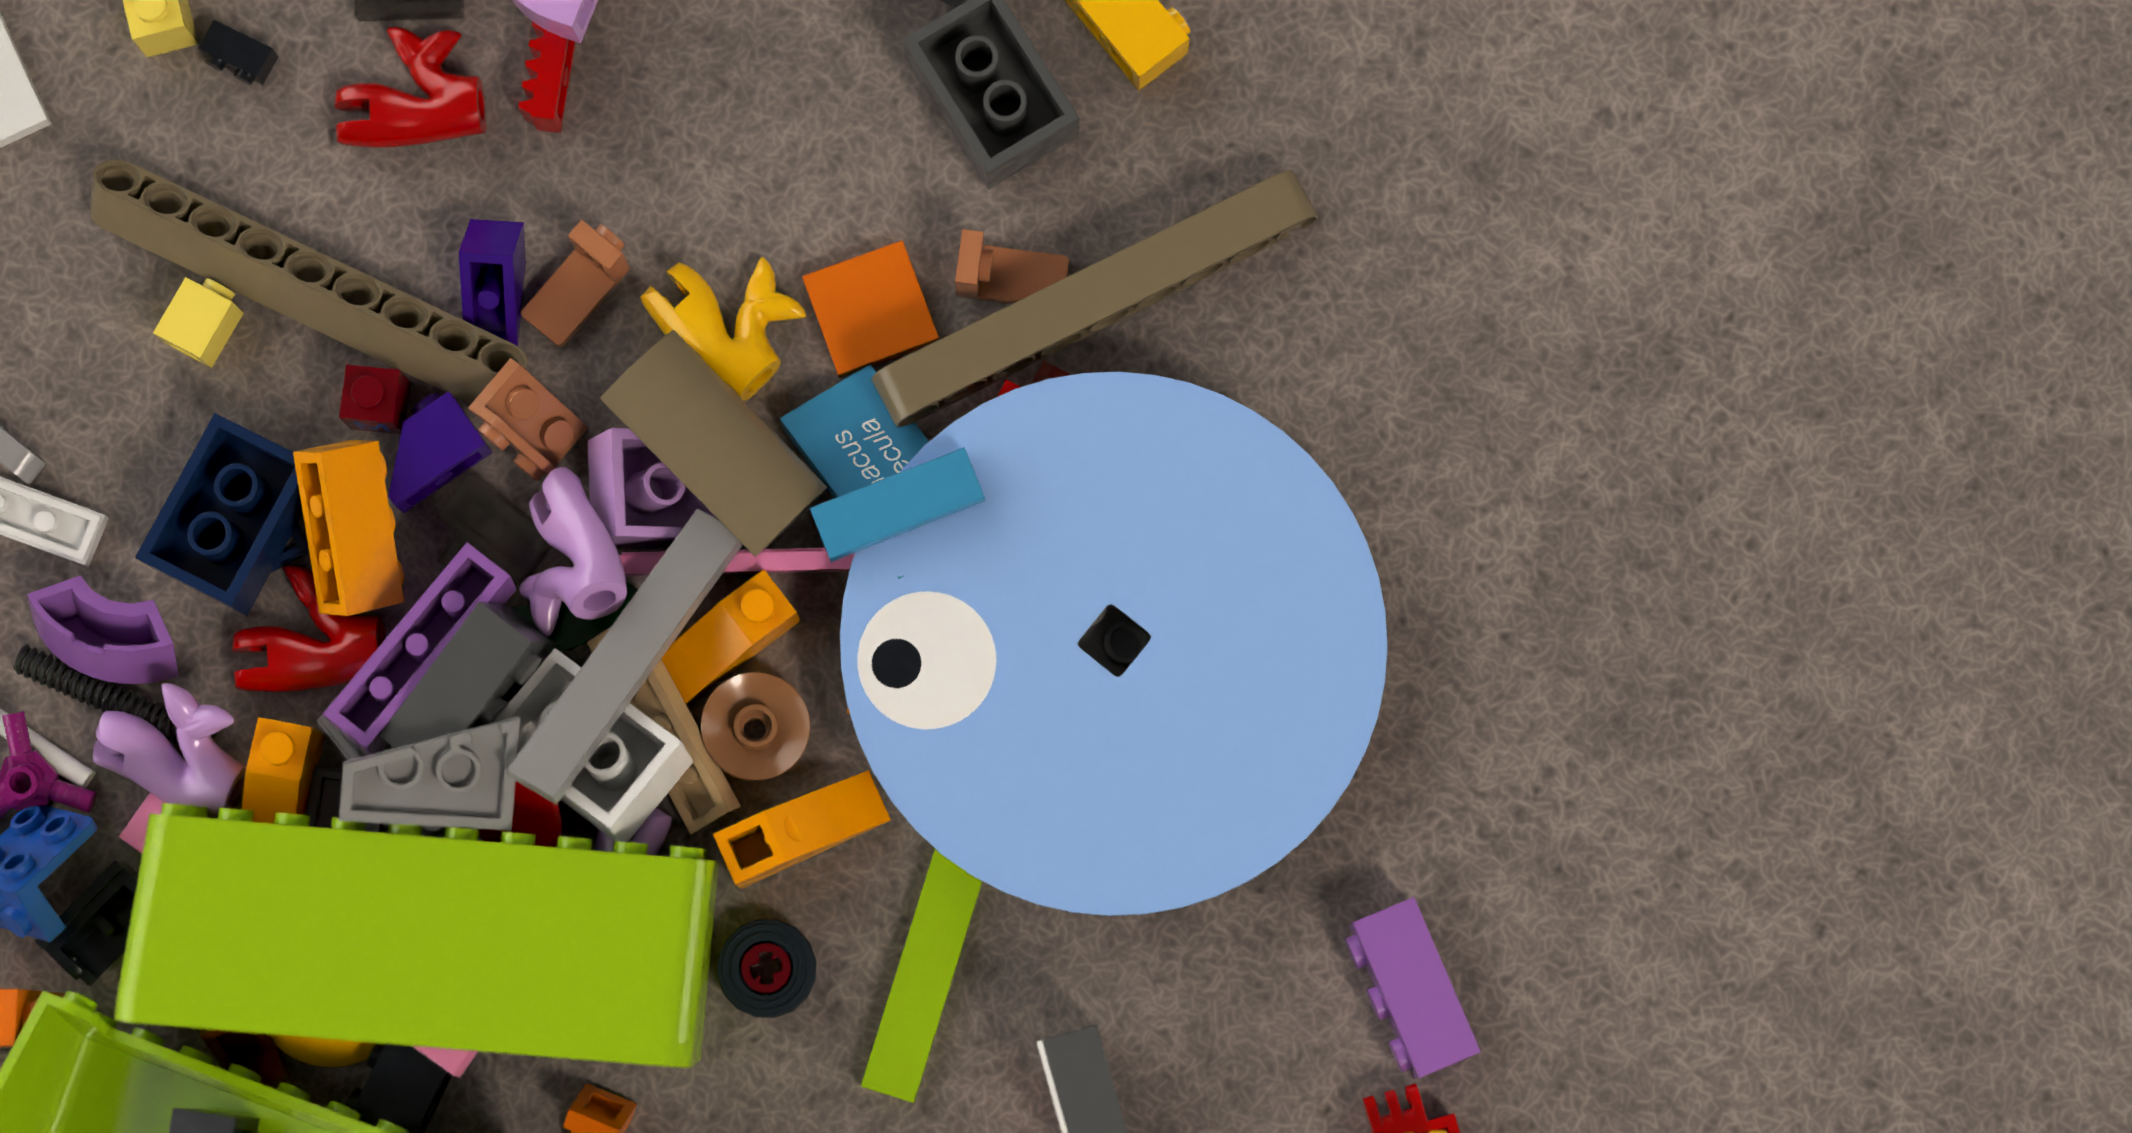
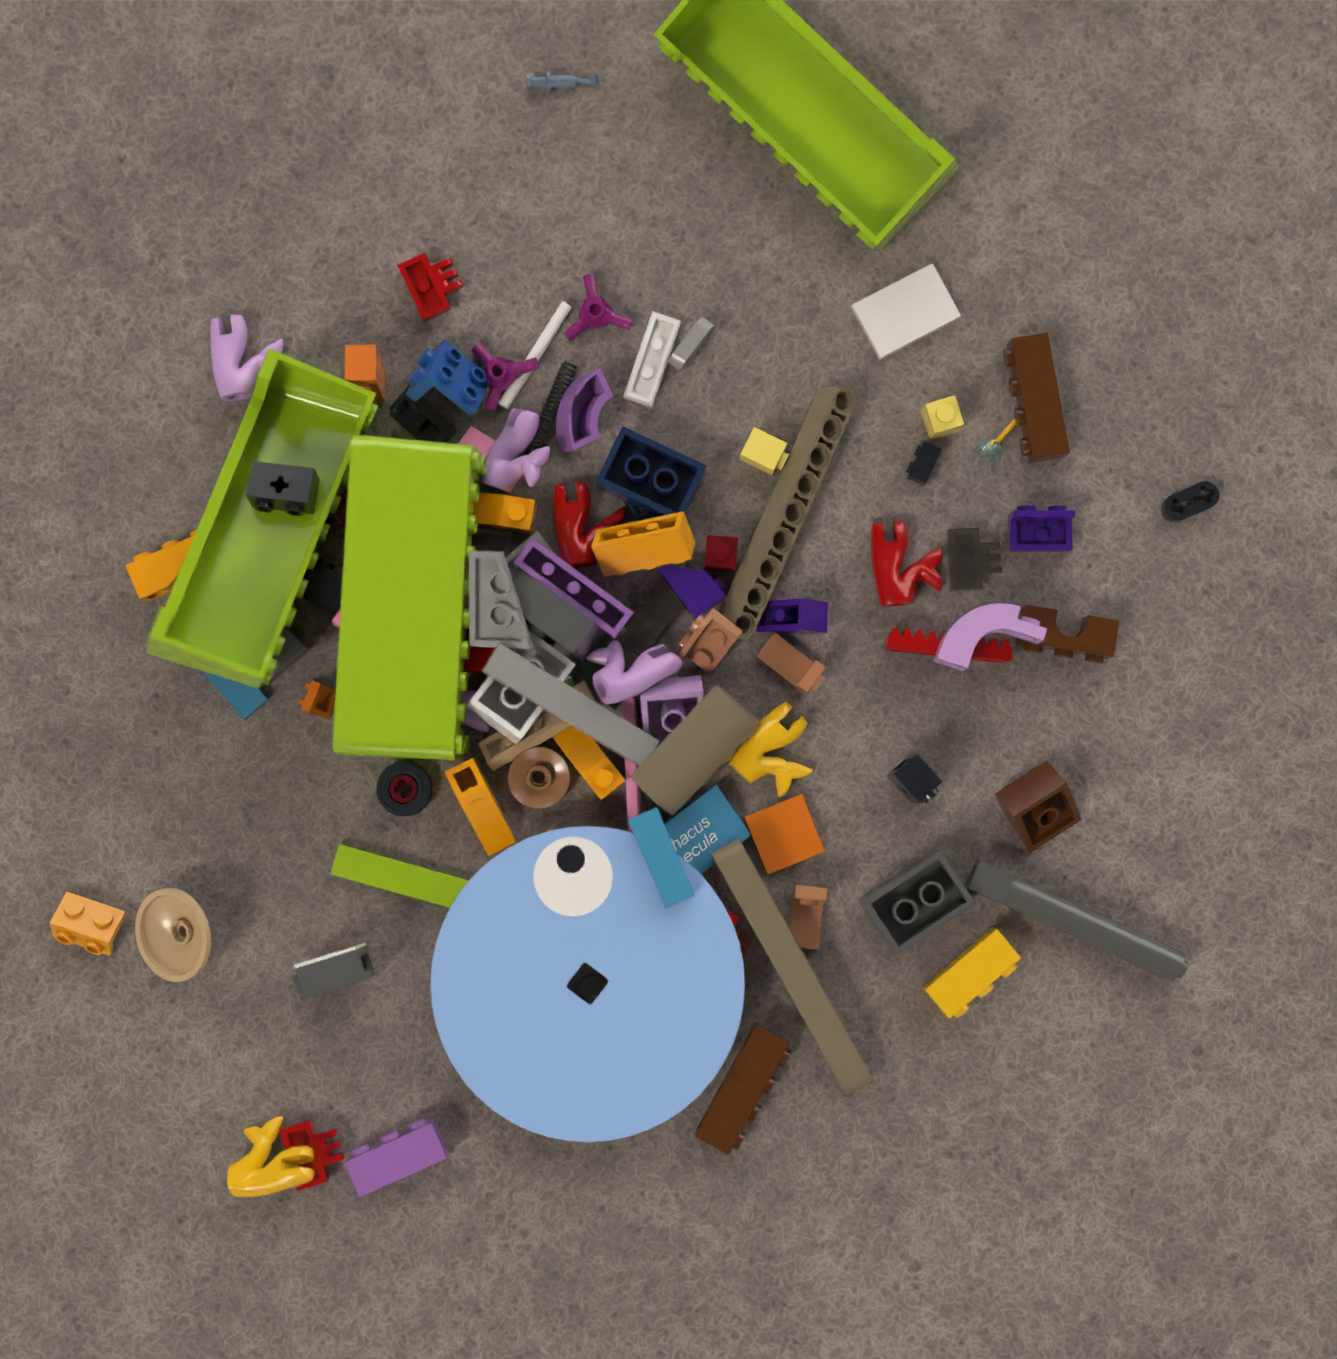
camera: 90 degrees right, 5 degrees up
(782, 79) = (915, 779): none -> black brick
(1302, 388) = (742, 1088): none -> reddish brown brick

